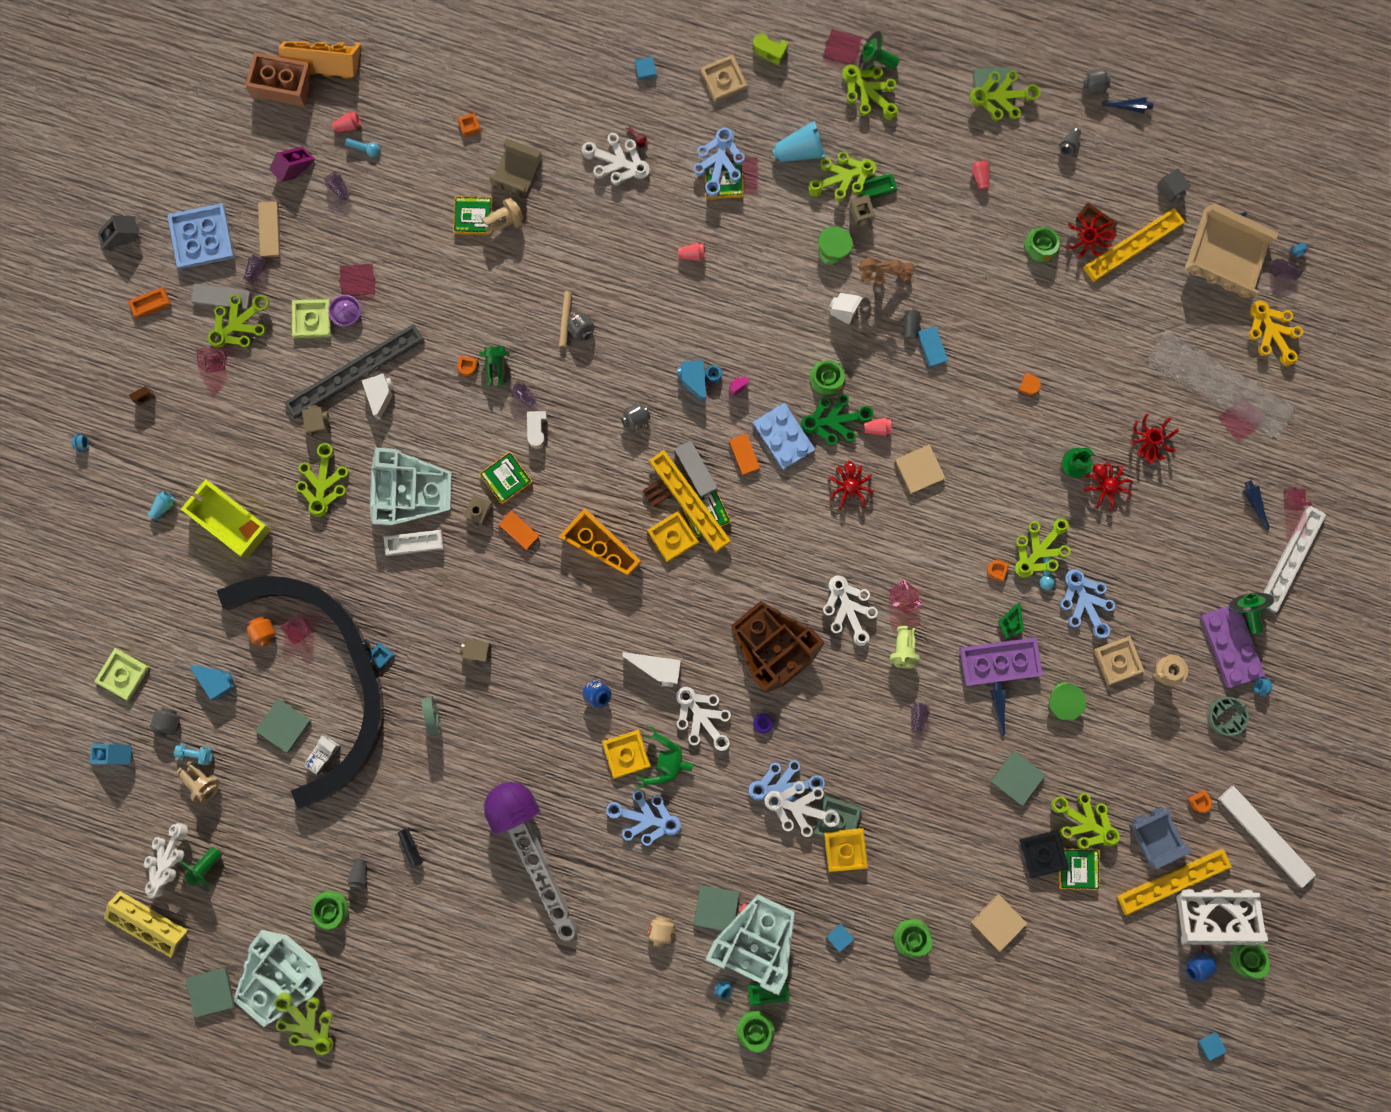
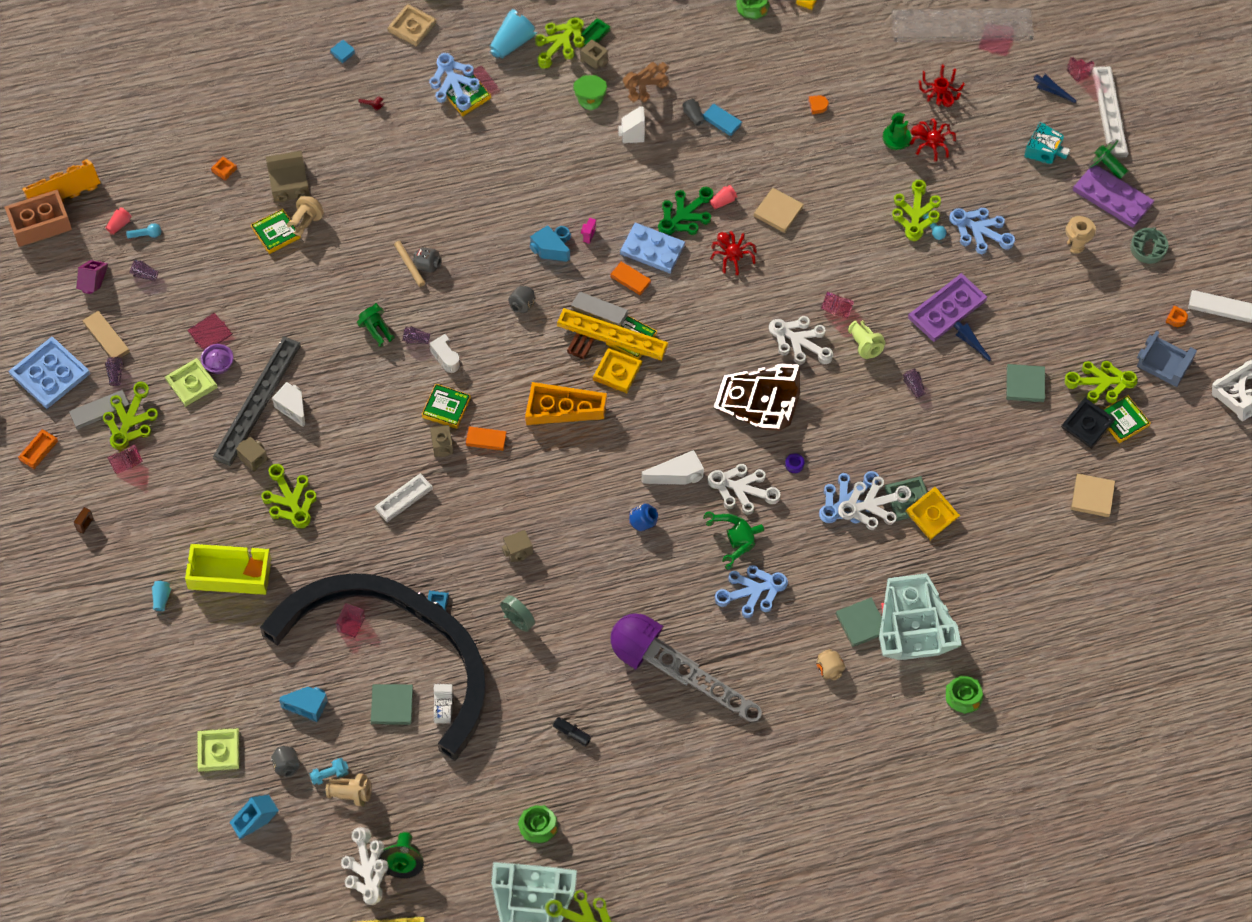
camera: 30 degrees left, 20 degrees down
(80, 443) = (51, 589): dark azure plate -> none
(261, 631) = (320, 641): orange head -> none
(357, 875) = (544, 781): dark grey cone -> none
(406, 488) = (366, 459): light aqua wedge -> none
(467, 366) = (351, 342): orange tile -> none
(618, 161) = (368, 127): white plant -> none
(626, 754) = (700, 552): yellow tile -> none
(692, 252) = (479, 157): coral cone -> none
(723, 990) = (914, 677): dark azure plate -> none
(760, 995) = (951, 660): green tile -> none
(827, 377) = (656, 186): bright green hat -> none
(840, 937) = (977, 582): dark azure tile -> none
(913, 938) = (1036, 547): bright green hat -> none
(997, 570) = (894, 246): orange tile -> none
(1012, 622) = (934, 275): green piece -> none
(1067, 701) = (1020, 304): bright green hat -> none
(1118, 660) = (1037, 255): tan tile -> none
(1174, 881) = (1201, 385): yellow tile -> none
(1207, 558) = (1046, 145): none -> teal torso
(1263, 686) = (1158, 209): dark azure plate -> none

